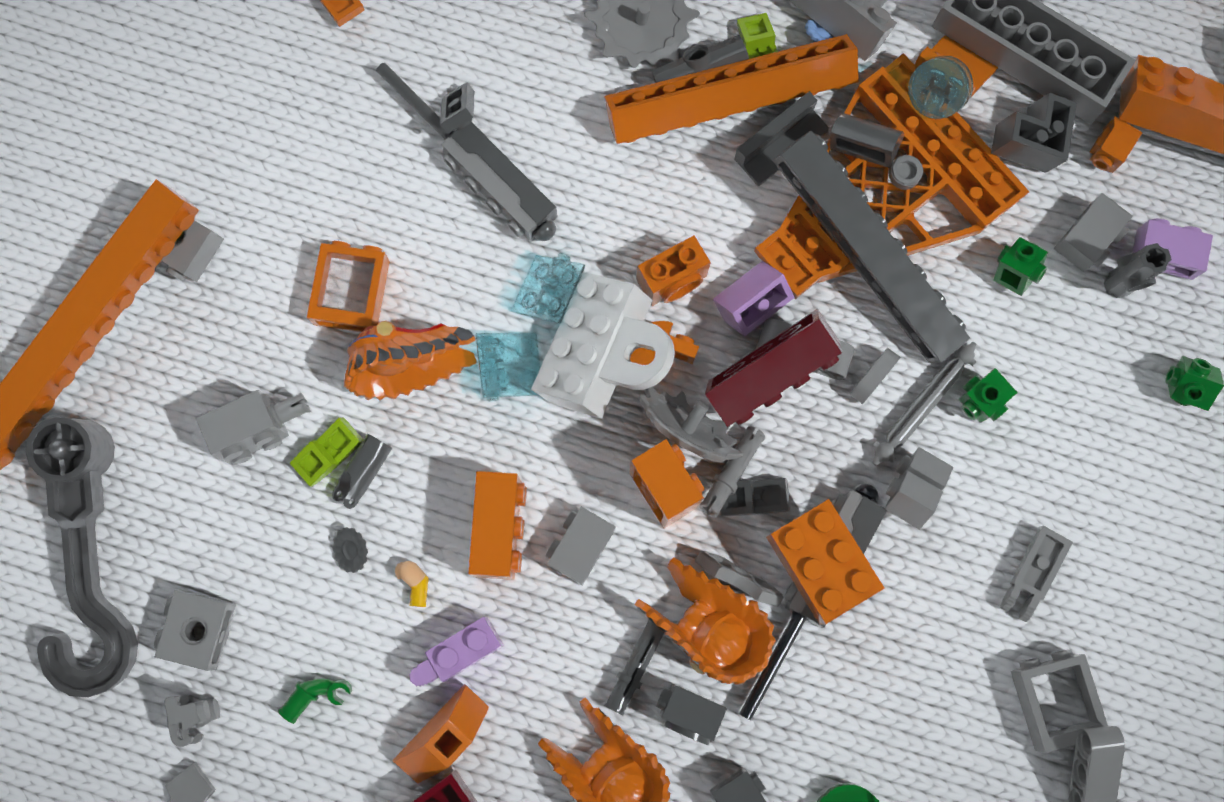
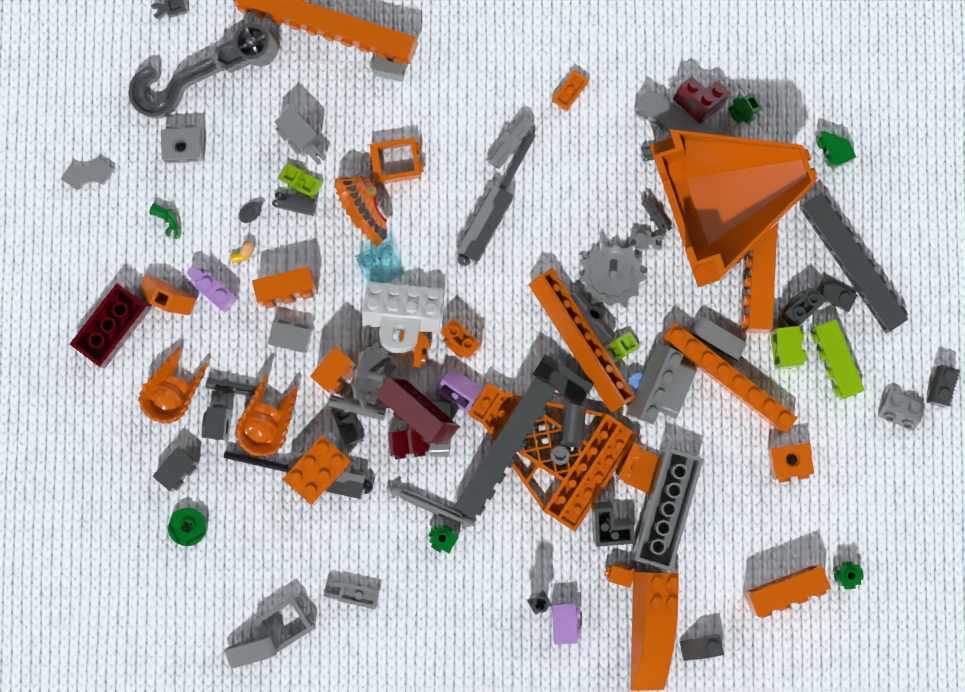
camera: 75 degrees right, 5 degrees up
(185, 713) = (136, 157): light grey piece -> none
(380, 104) = (510, 141): none -> light grey piece
(457, 108) = (518, 186): dark grey plate -> none
(548, 287) = (429, 272): clear light blue hinge -> none
(728, 572) = (296, 437): light grey tile -> none
(813, 408) = (406, 443): none -> dark red brick
(875, 375) = (437, 472): light grey beam -> none
(918, 488) = (378, 513): light grey piece -> none
(940, 87) = (616, 460): clear light blue head -> none
(1020, 266) = (527, 538): green brick -> none
(1093, 233) = (562, 576): light grey brick -> none
(1194, 382) = (488, 655): green brick -> none

